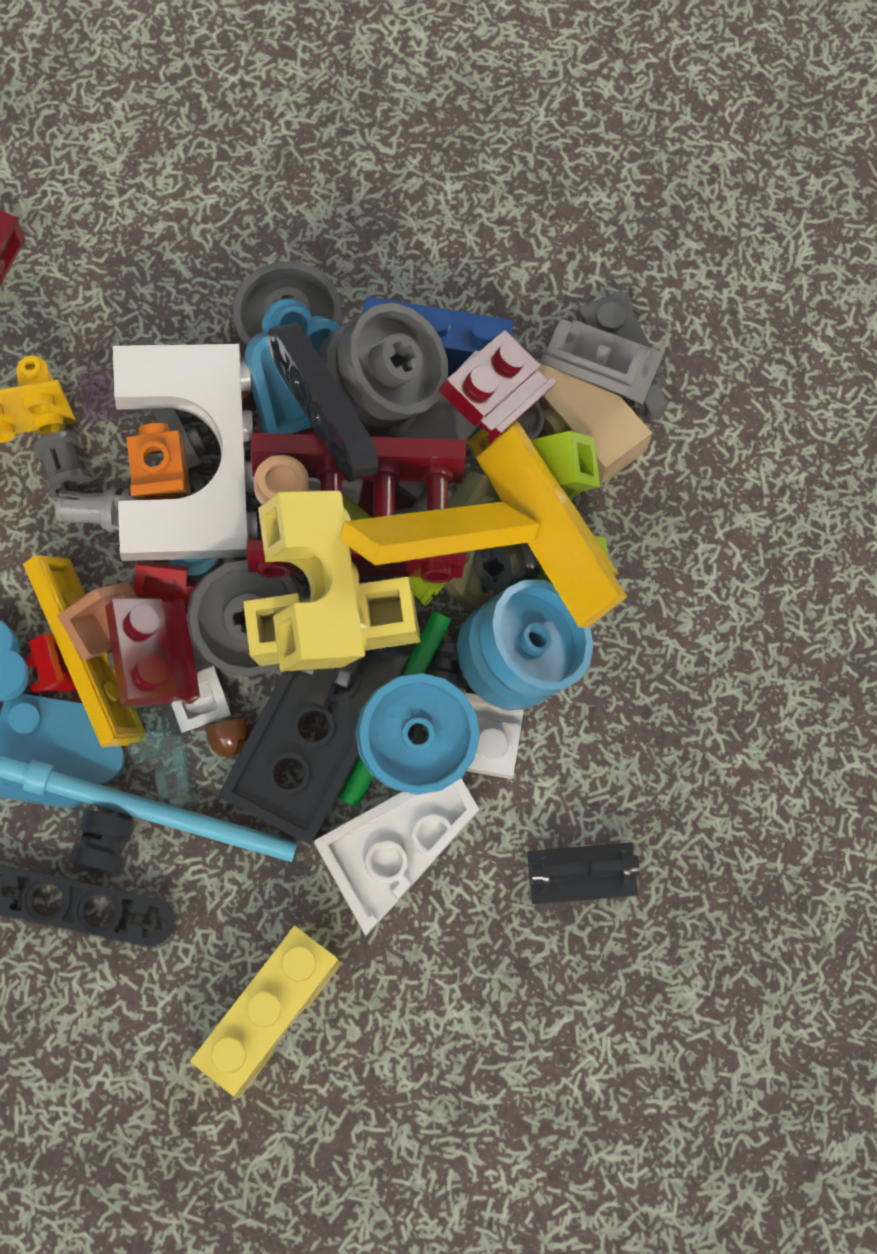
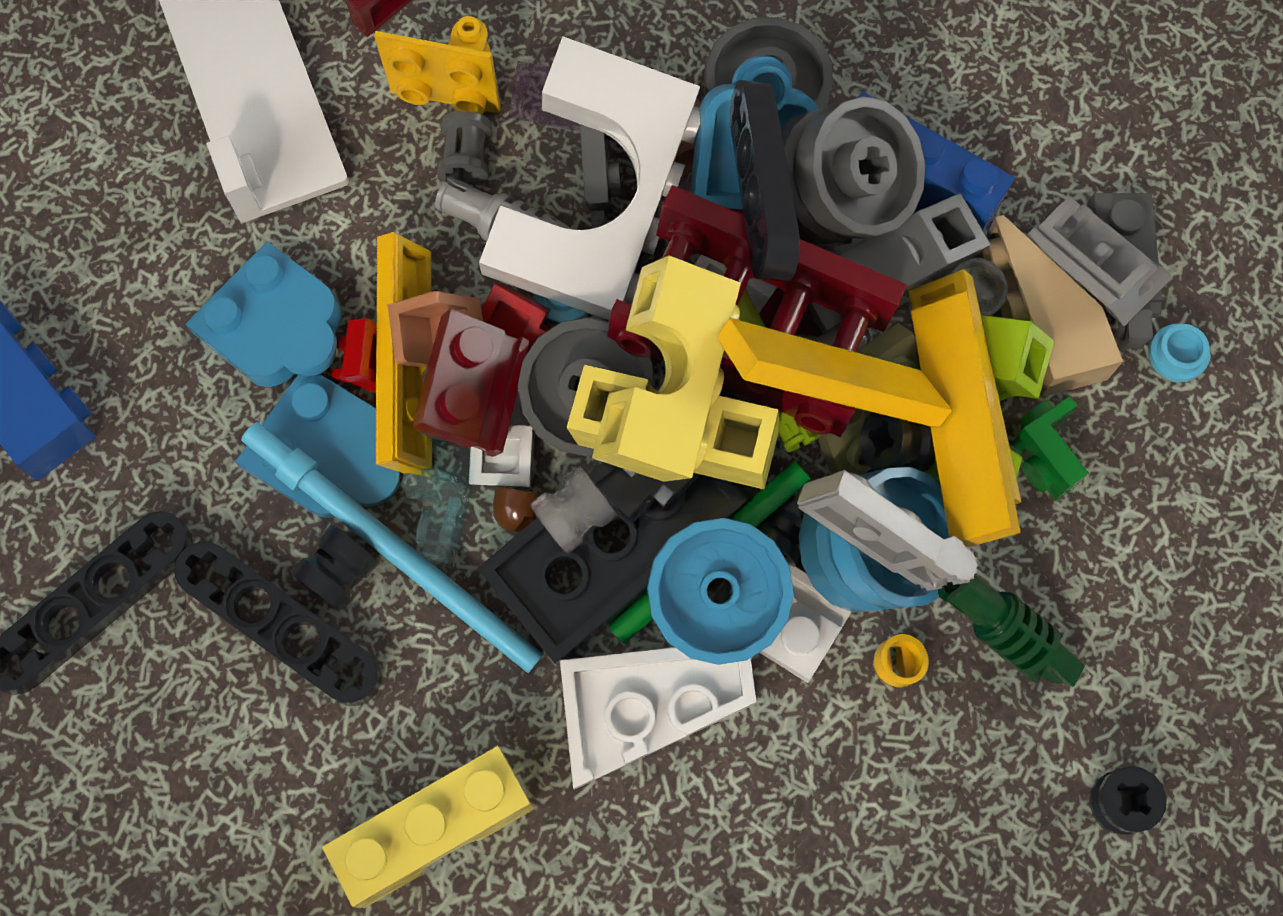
camera: 25 degrees right, 0 degrees up
(169, 478) = (565, 203): orange brick -> none
(277, 718) = (573, 510): none -> clear wheel
(279, 474) = (684, 241): light nougat tile -> none
(497, 386) = (967, 240): plate -> none
(527, 637) = (886, 532): none -> light grey hinge
(583, 873) = (844, 822): black hinge -> none
(584, 729) = (910, 660): none -> yellow hinge
(625, 531) = (1046, 457): none -> green bracket
(649, 672) = (1014, 631): none -> dark green hinge
(692, 407) = (1179, 352): none -> medium azure plate
(780, 776) = (1116, 808): none -> black wheel

